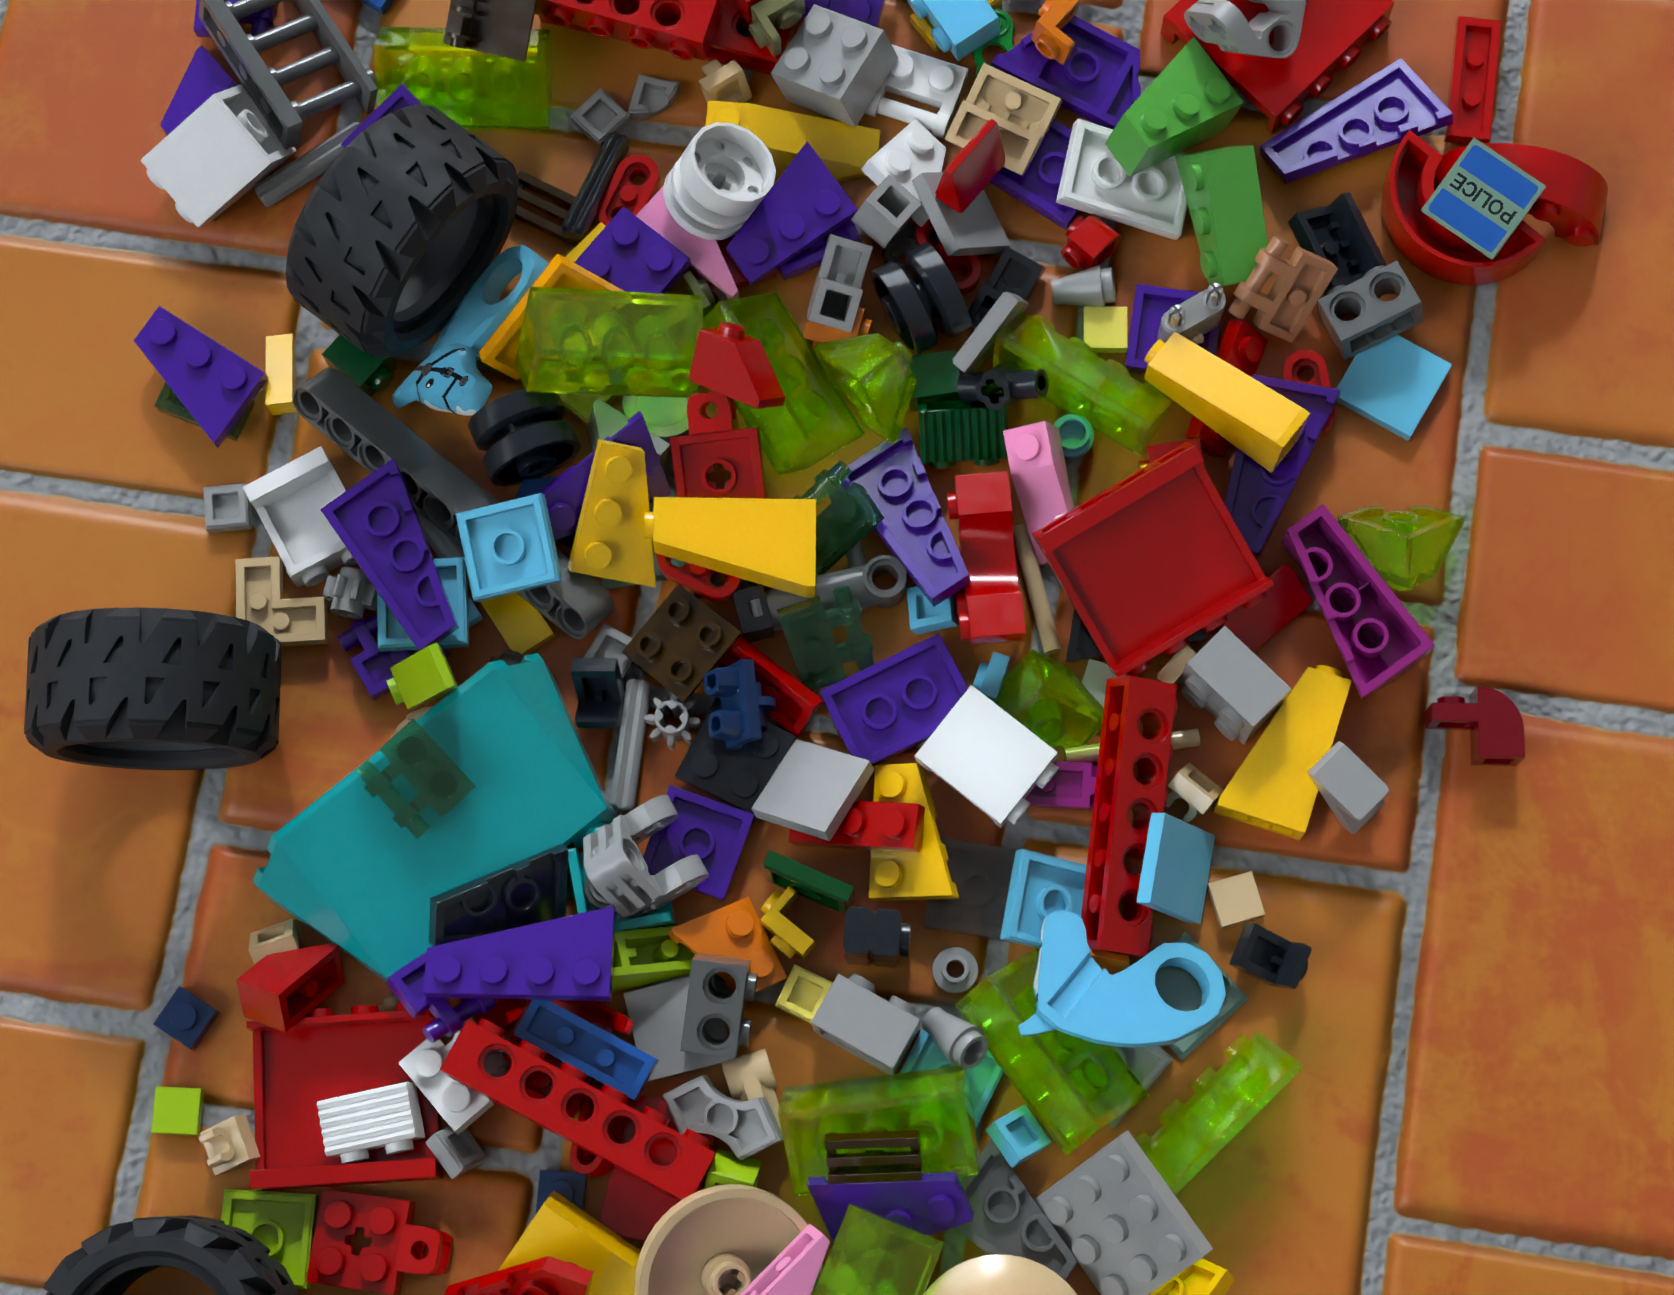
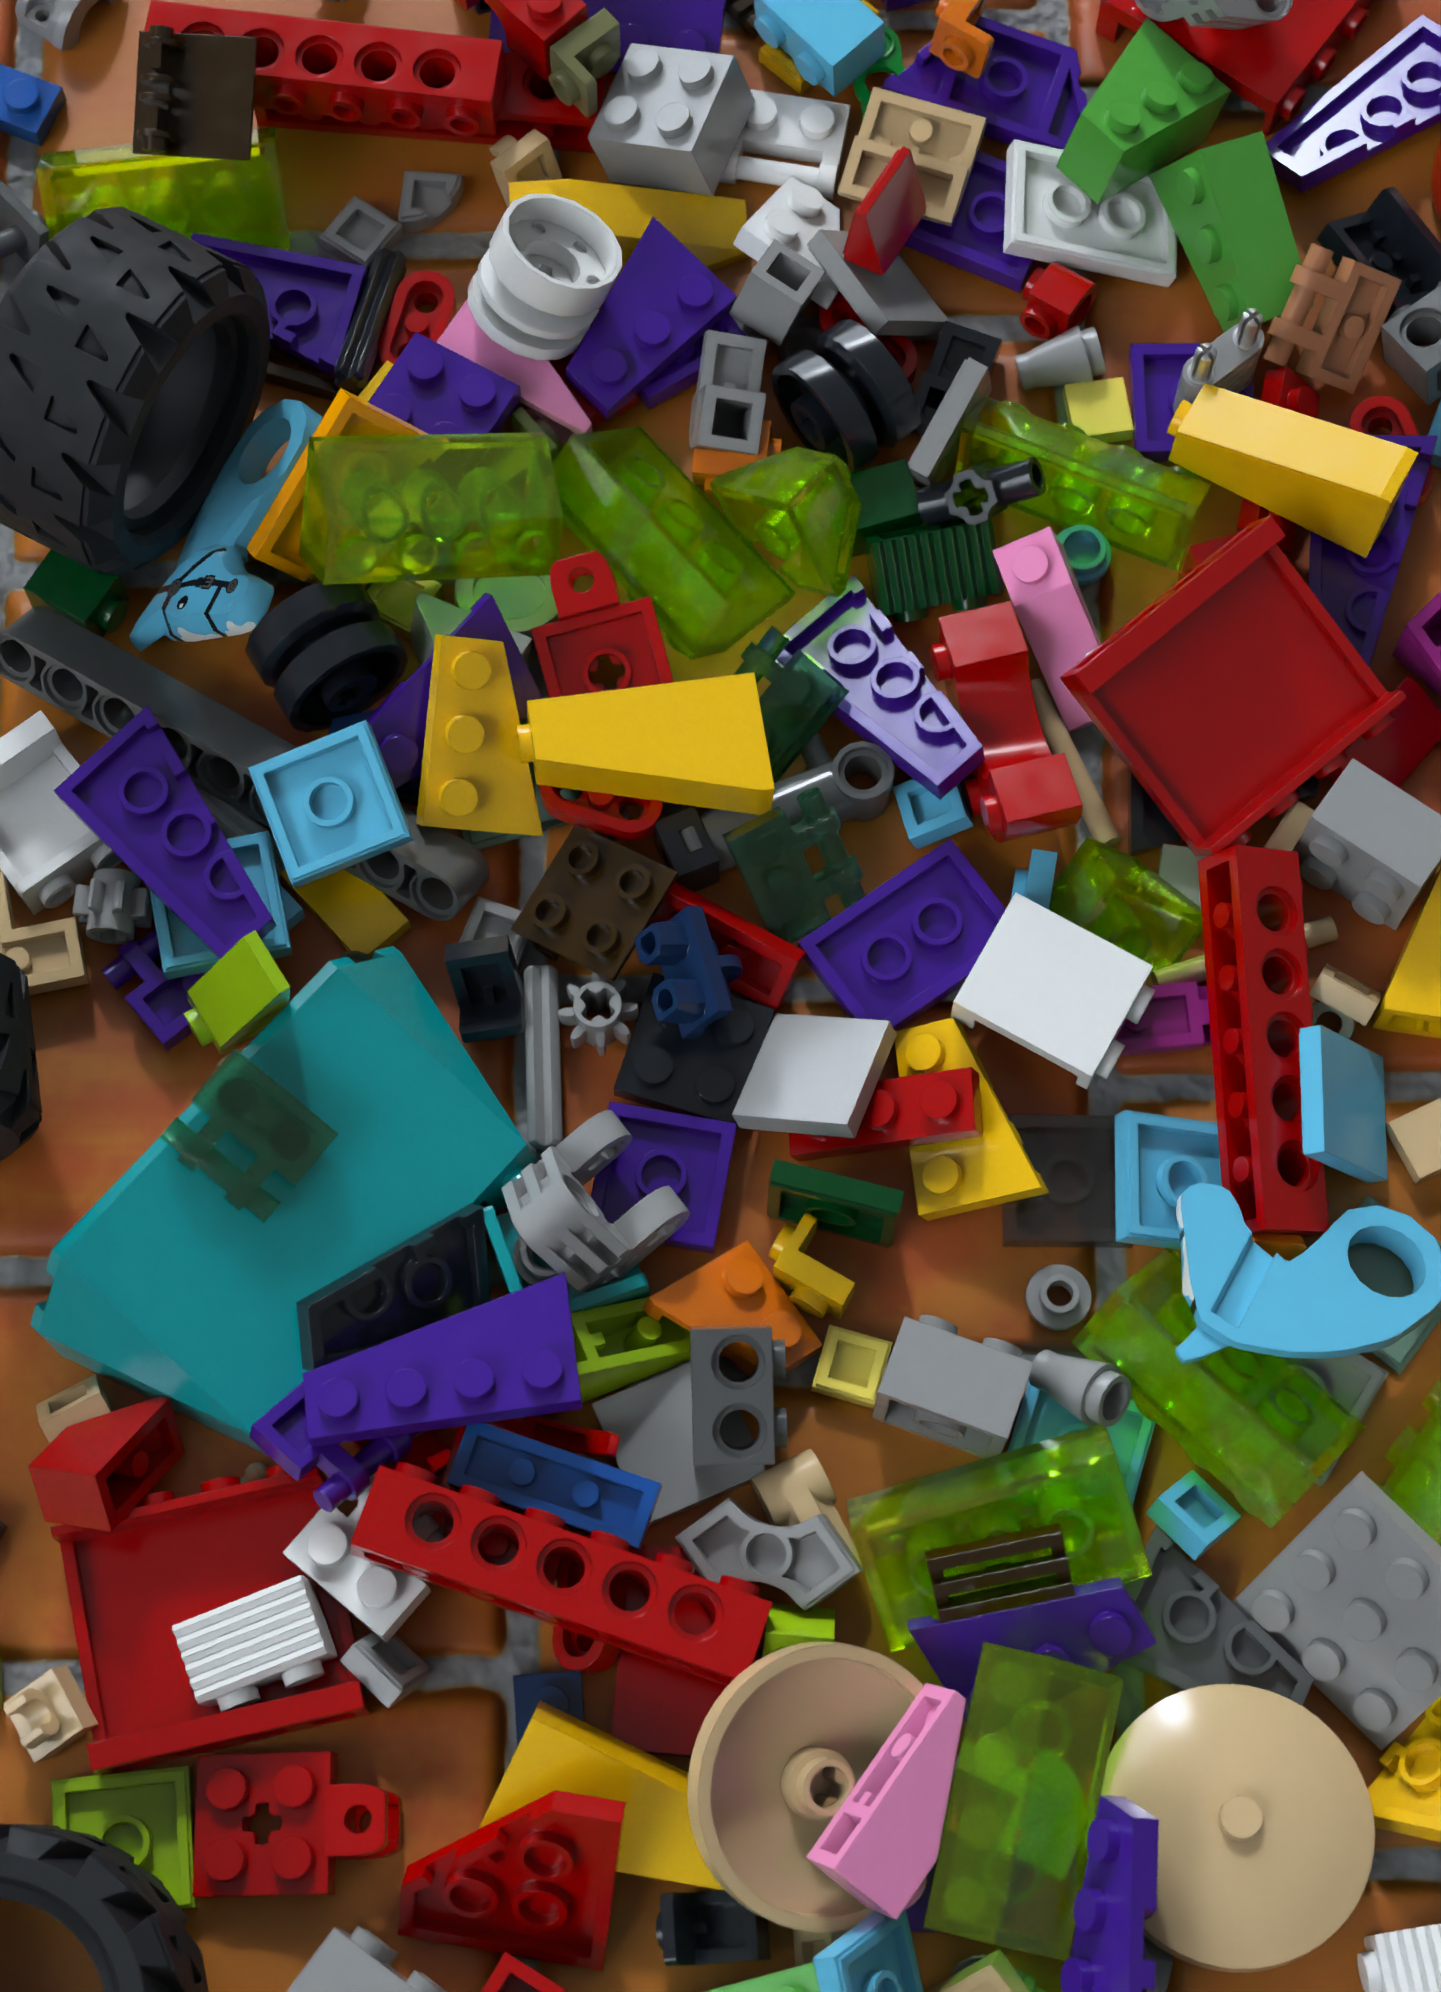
camera: 15 degrees left, 5 degrees down
(546, 162) = (305, 296): none -> dark purple wing
(735, 367) = (608, 514): red slope -> none
(875, 937) = (942, 1264): black brick -> none

